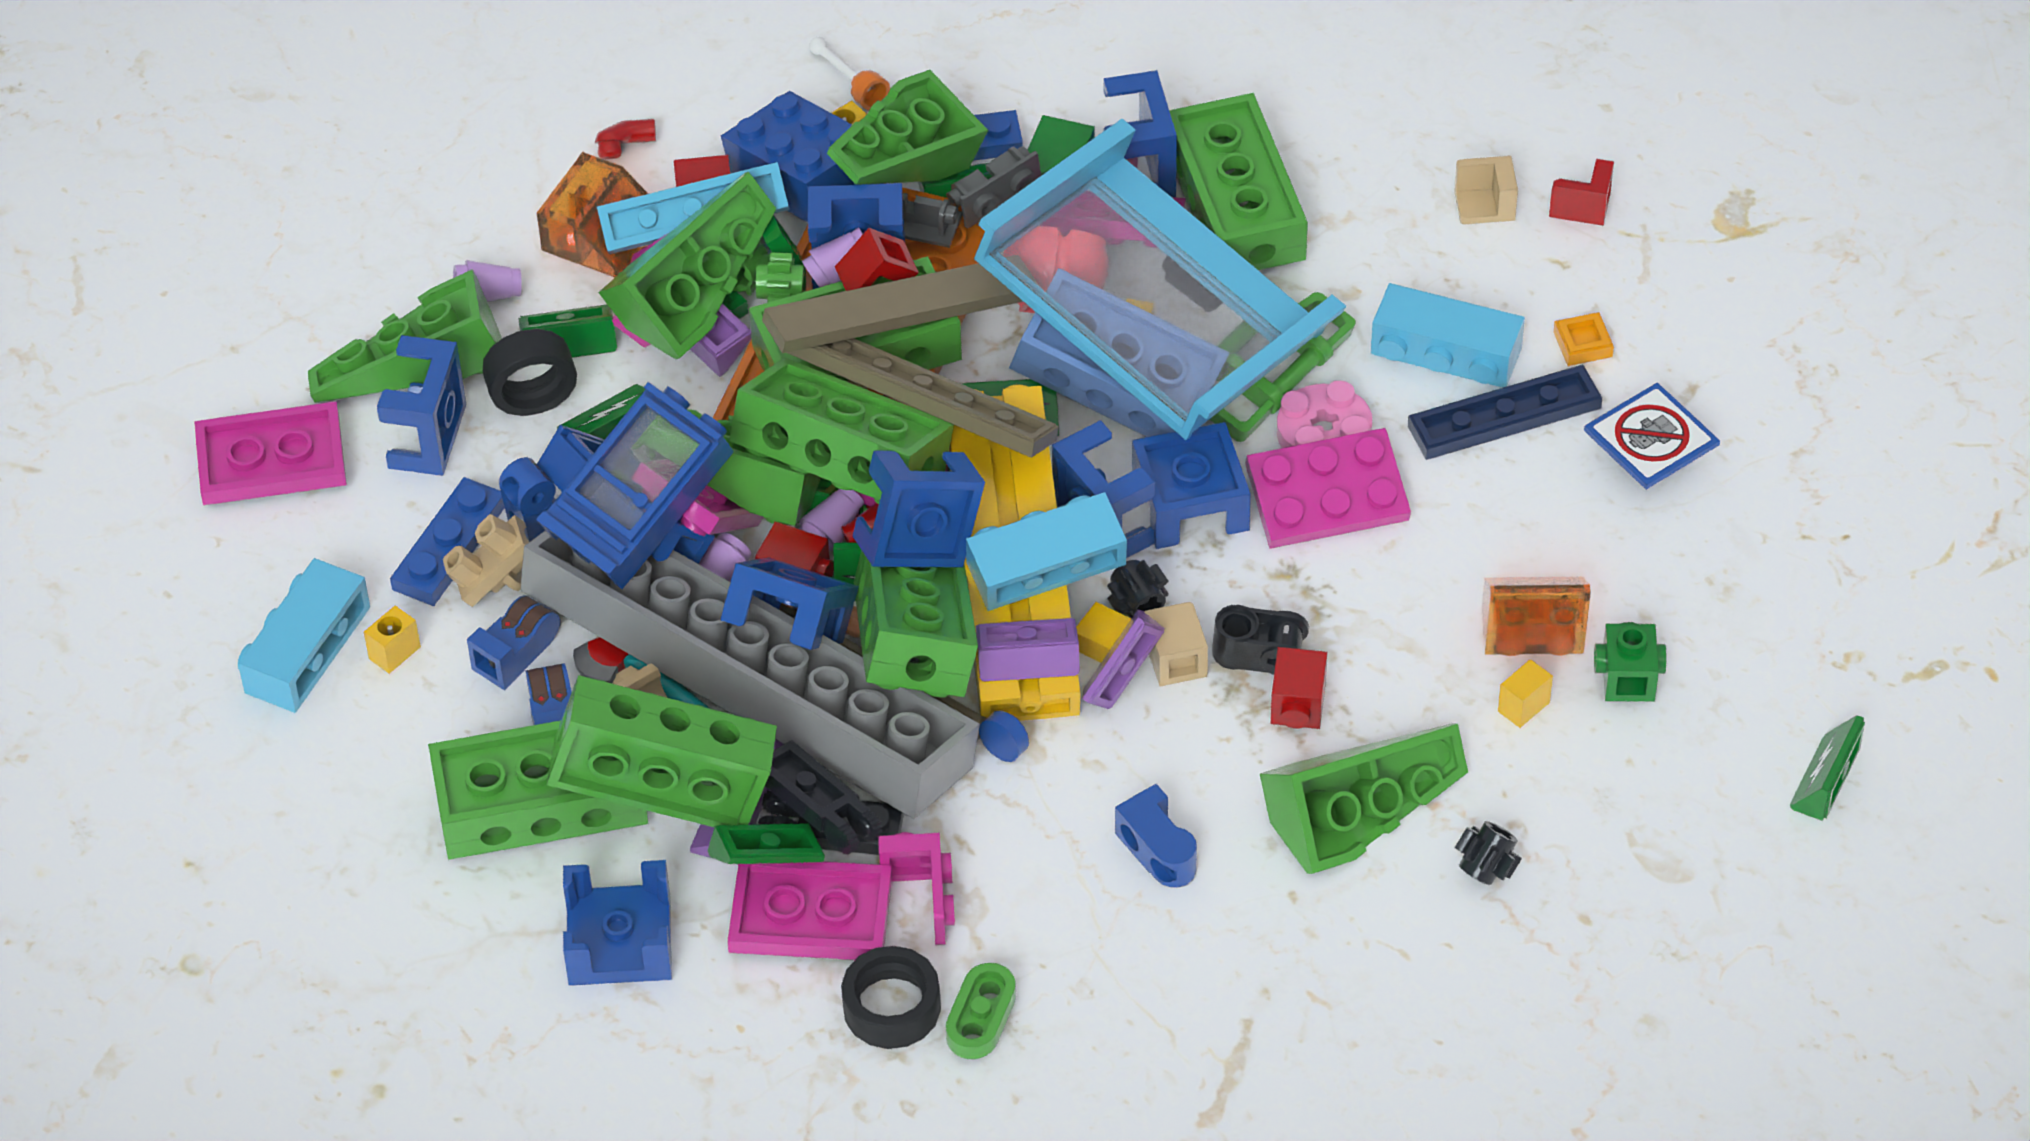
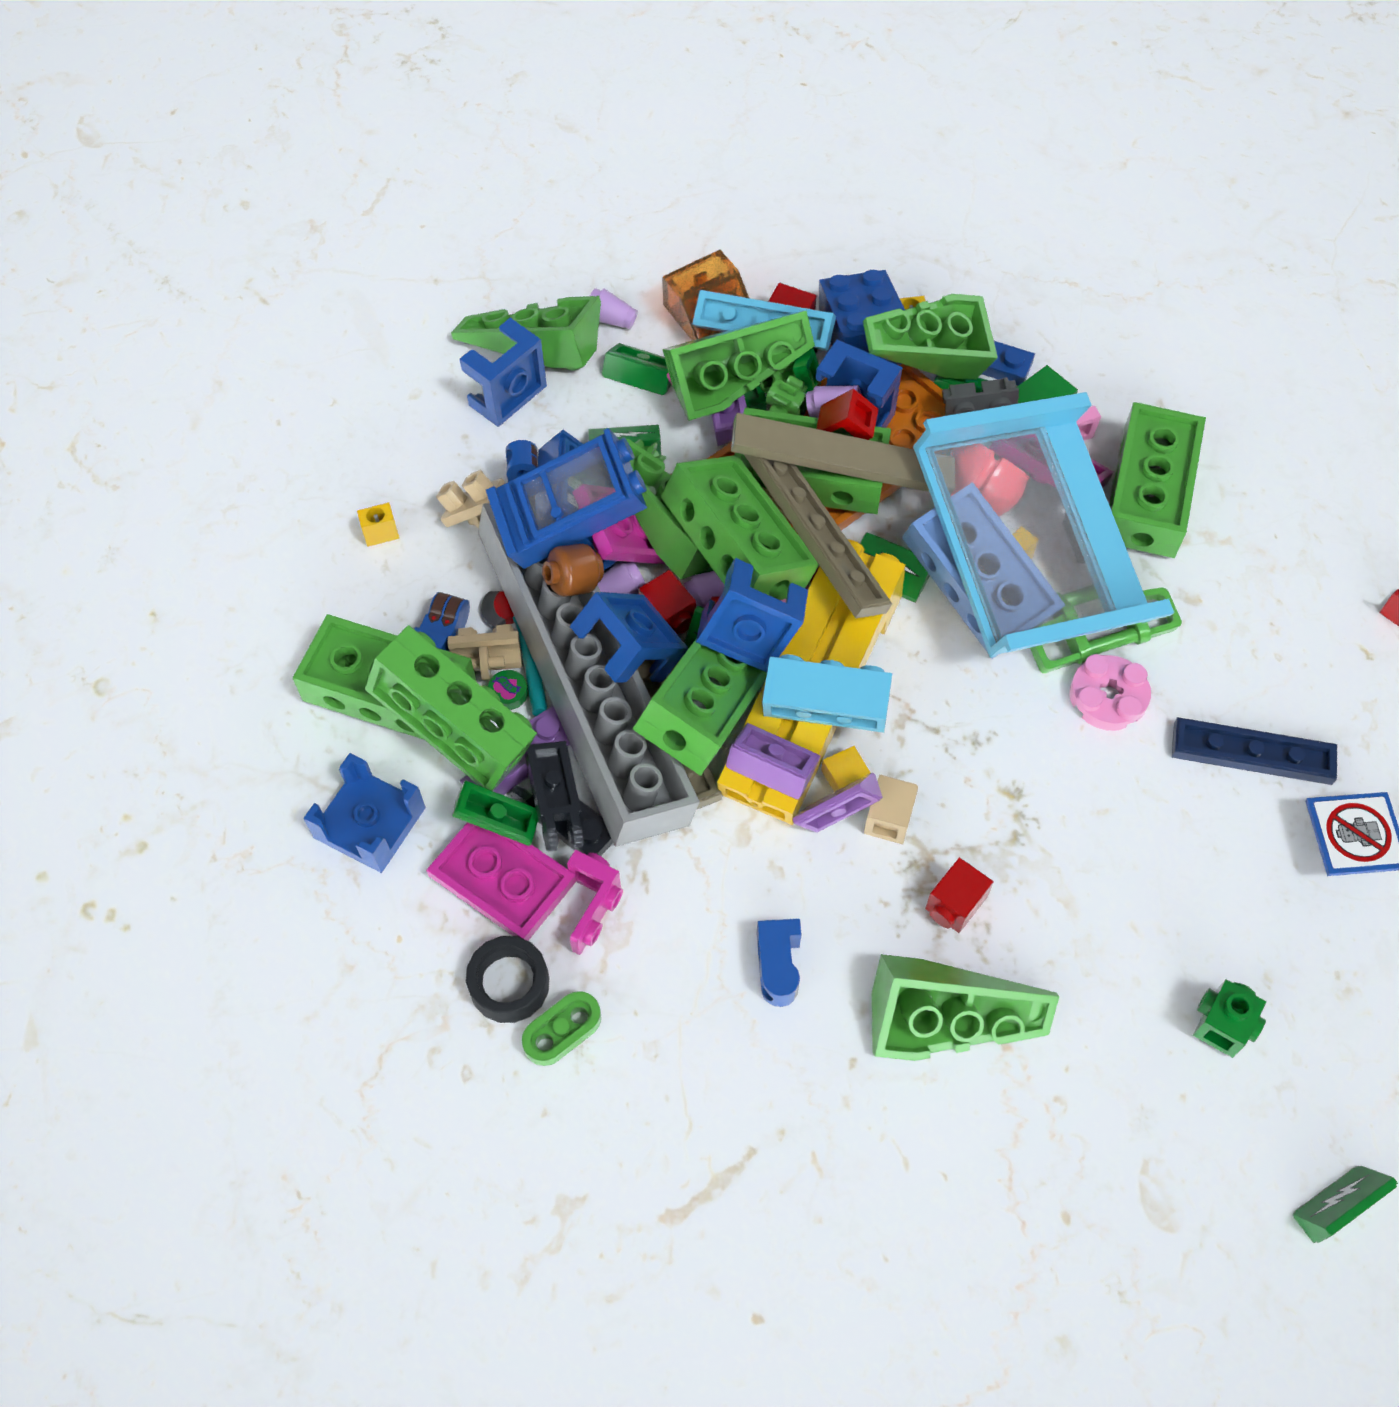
camera: 30 degrees right, 10 degrees up
(270, 453) = (400, 359): dark pink plate -> none
(303, 635) = (327, 493): medium azure brick -> none
(422, 570) = (488, 458): blue plate -> none
(512, 641) = (452, 565): blue leg -> none
(520, 351) = (592, 368): black tyre -> none
(625, 131) = (766, 250): red arm -> none
(683, 561) = (573, 569): none -> dark orange head
(866, 85) = (943, 286): orange hinge -> none
(930, 220) = (917, 401): dark grey hinge -> none
(1004, 736) = (723, 815): blue tile -> none
(1078, 477) = (907, 665): blue panel -> none
(1137, 587) = (890, 752): black gear -> none
(1154, 131) = (1111, 413): blue panel -> none
(1193, 480) = (981, 688): blue panel -> none
(1251, 636) = (959, 839): black piece -> none
(1327, 488) = (1081, 744): dark pink plate -> none
(1447, 335) = (1244, 670): medium azure brick -> none
(1486, 190) = (1341, 570): tan panel -> none
(1488, 852) = (1018, 1121): black gear -> none
(1525, 693) = (1131, 995): yellow piece -> none
(1535, 615) = (1177, 935): clear orange slope -> none
(1583, 339) = (1350, 723): light orange tile -> none

